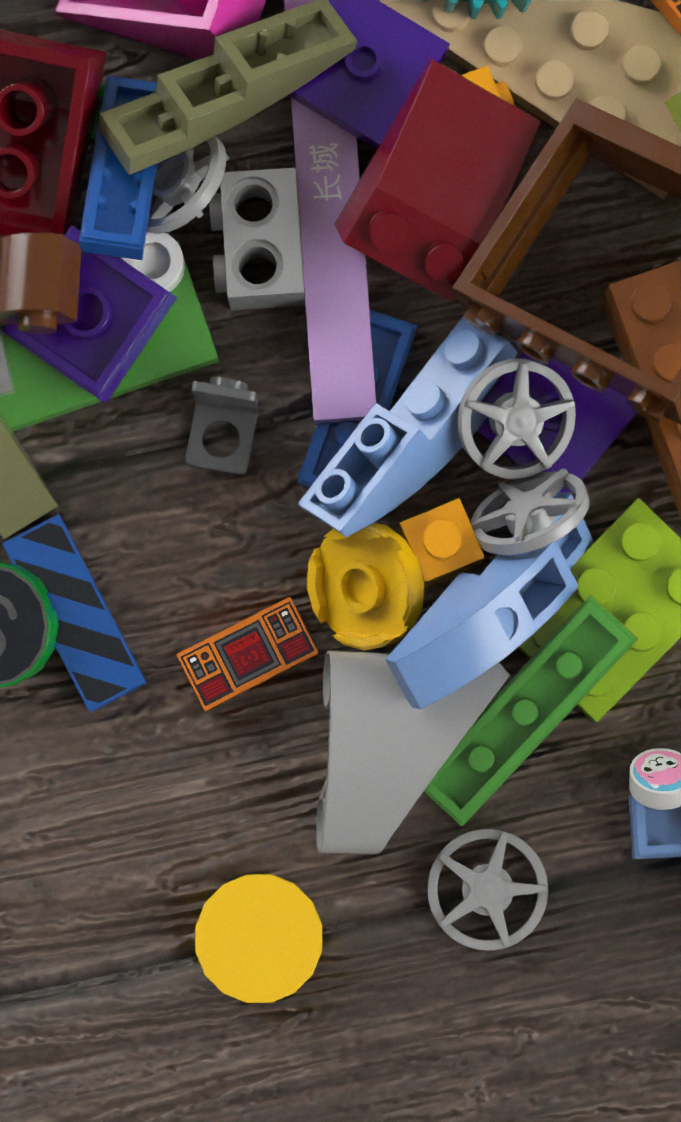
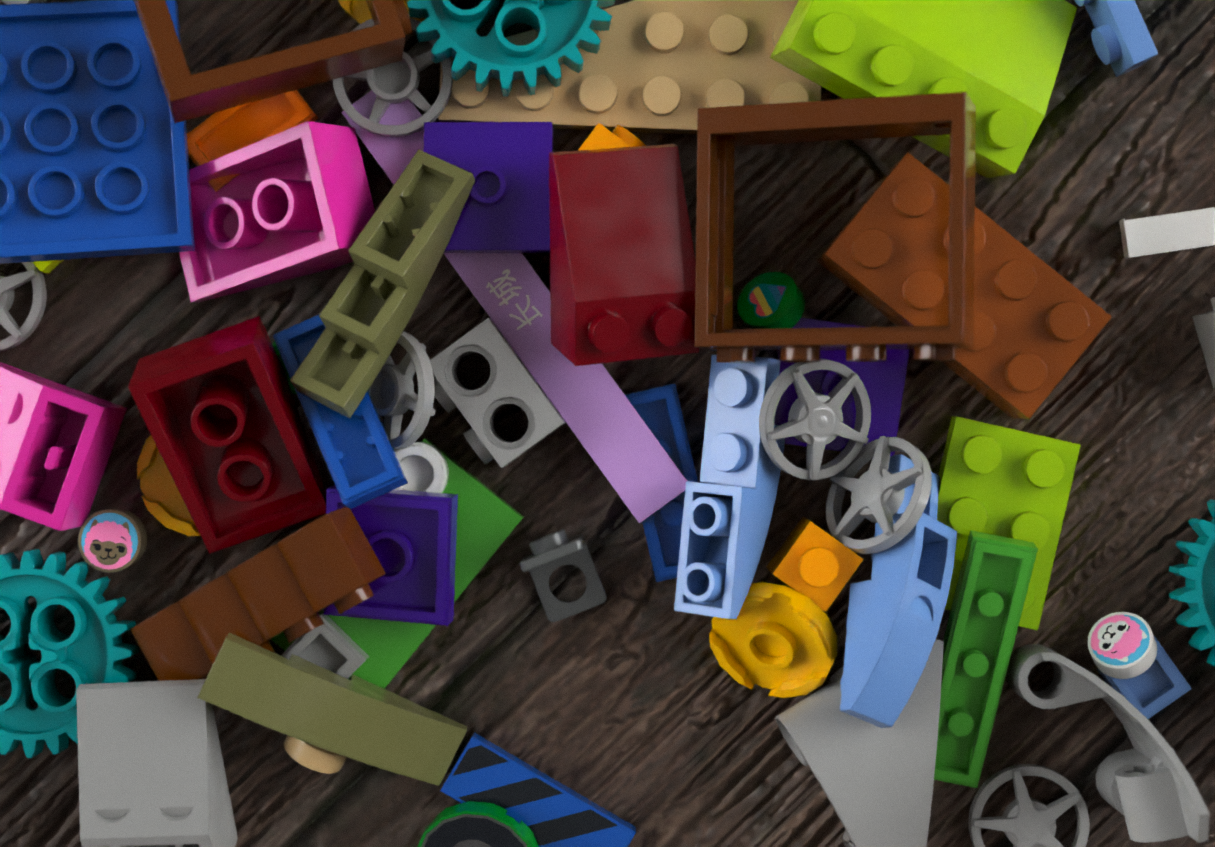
camera: 40 degrees left, 5 degrees up
(247, 654) = (706, 753): tile -> none
(544, 300) = (771, 302): none -> green tile
(598, 904) = (1141, 782): none -> light grey panel

